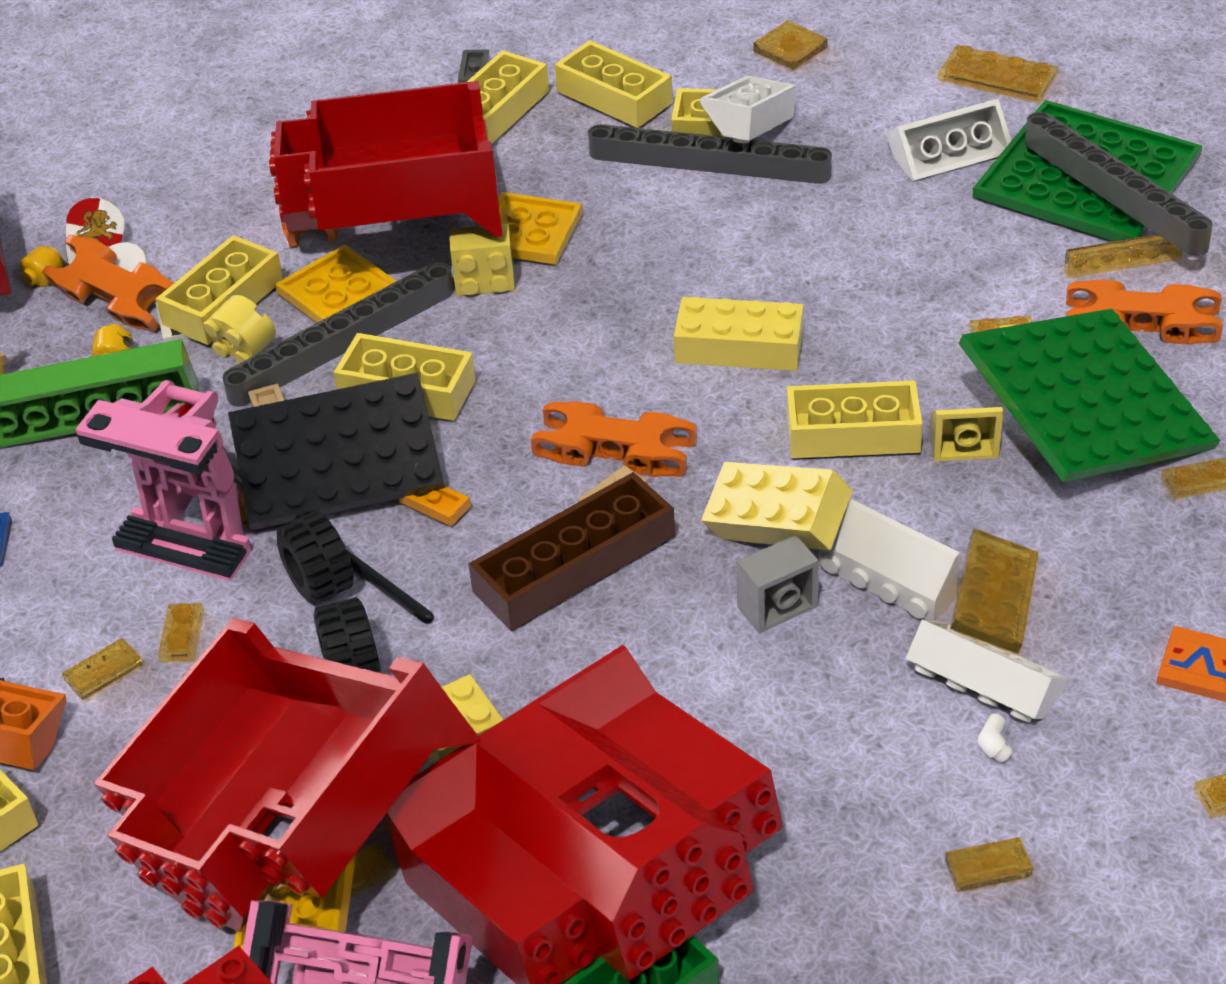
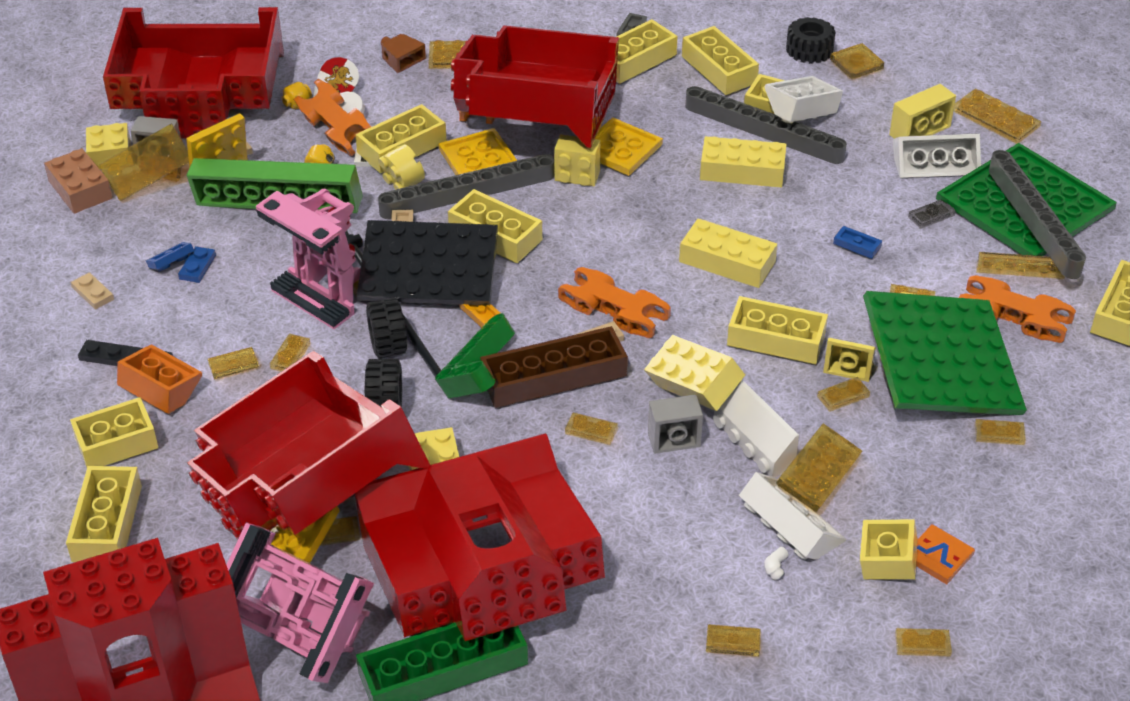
camera: 15 degrees right, 0 degrees up
(169, 172) = (402, 52): none -> dark orange torso
(235, 161) = (443, 52): none -> clear yellow plate
(449, 590) = (465, 371): none -> green beam
(658, 622) = (591, 428): none -> clear yellow plate
(704, 208) = (743, 161): none -> light yellow brick
(720, 31) = (810, 40): none -> black tyre
(900, 277) = (857, 242): none -> blue plate
(911, 90) = (923, 113): none -> light yellow brick
(975, 483) = (843, 394): none -> clear yellow plate
(976, 217) = (931, 213): none -> clear smoke plate
(1141, 676) = (889, 549): none -> light yellow brick

